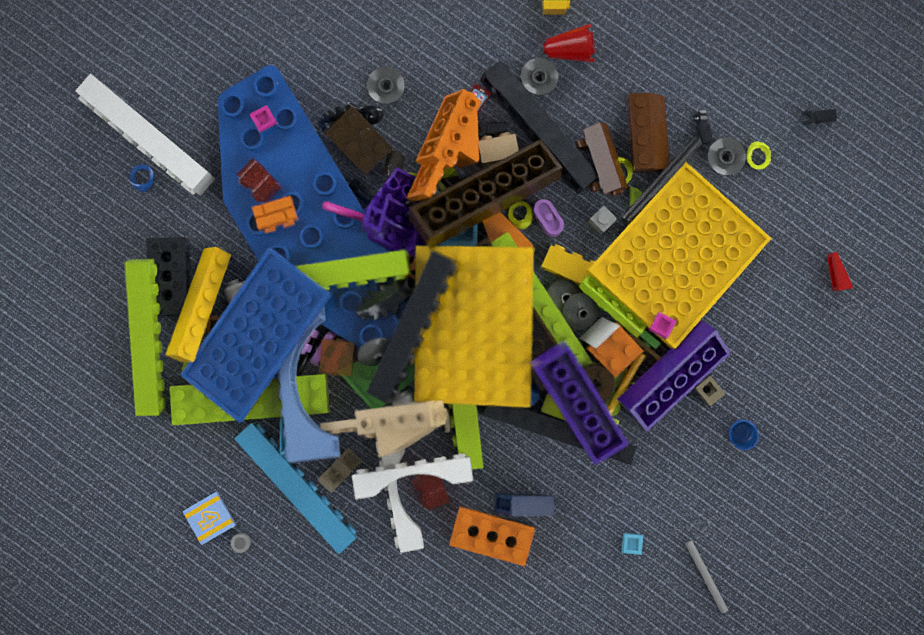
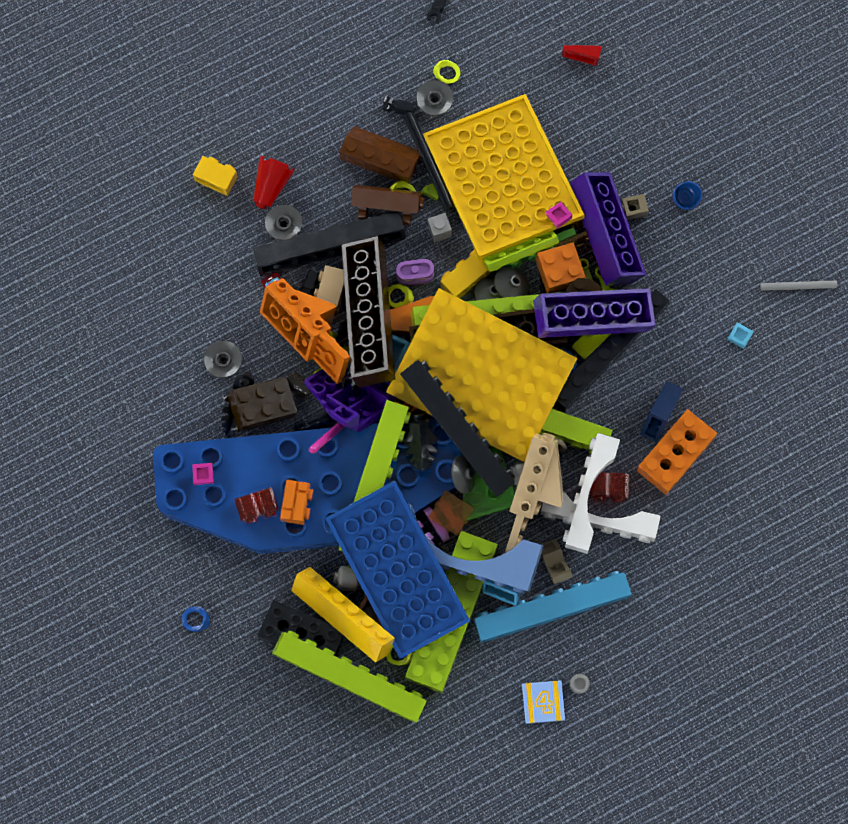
camera: 60 degrees left, 10 degrees down
(141, 132) = (160, 594): white brick -> none
(599, 332) = (538, 273): white sticker -> none
(625, 382) = (590, 268): yellow bar -> none

